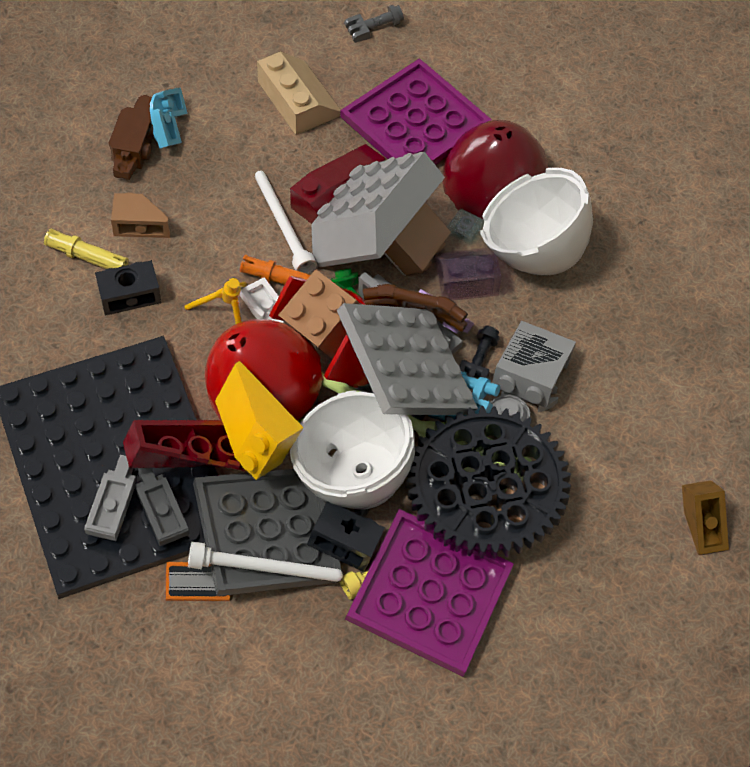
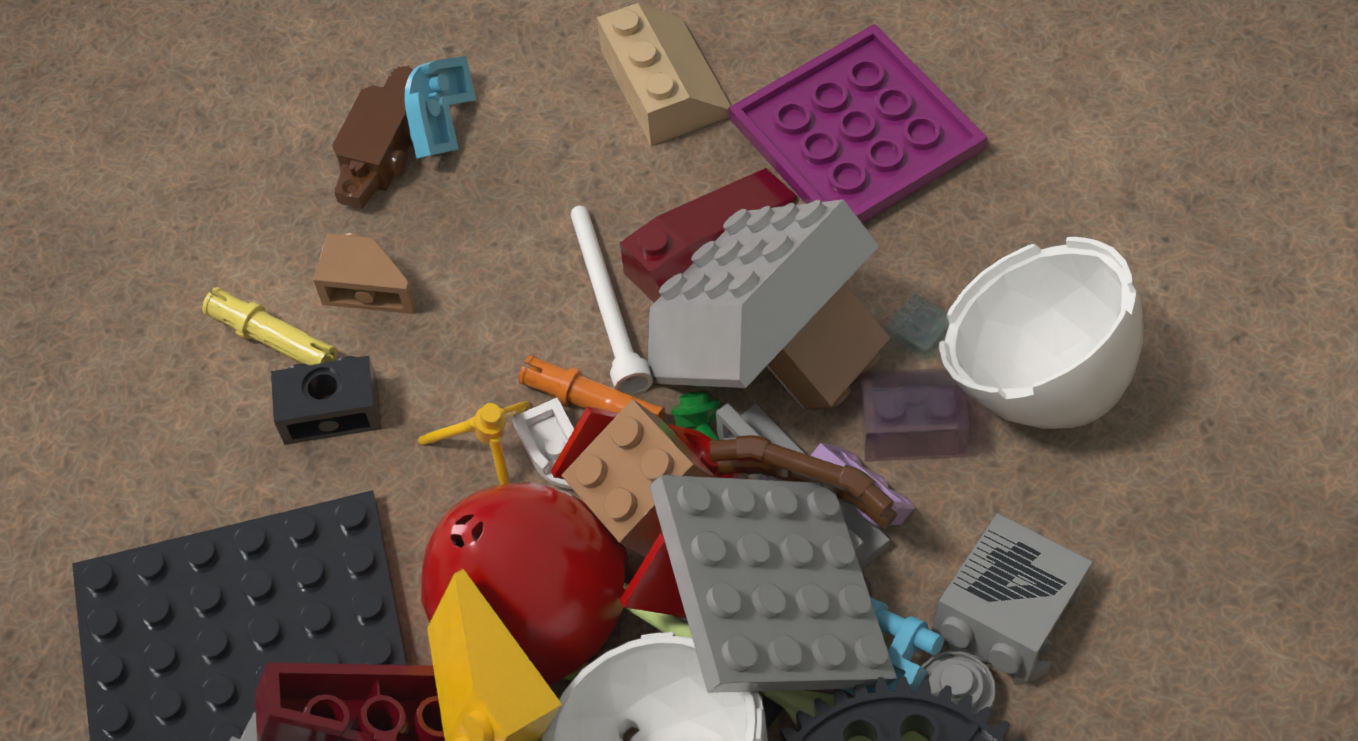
camera: 15 degrees right, 0 degrees up
(488, 161) = (961, 225): dark red piece -> none
(488, 337) = (936, 536): black hinge -> none

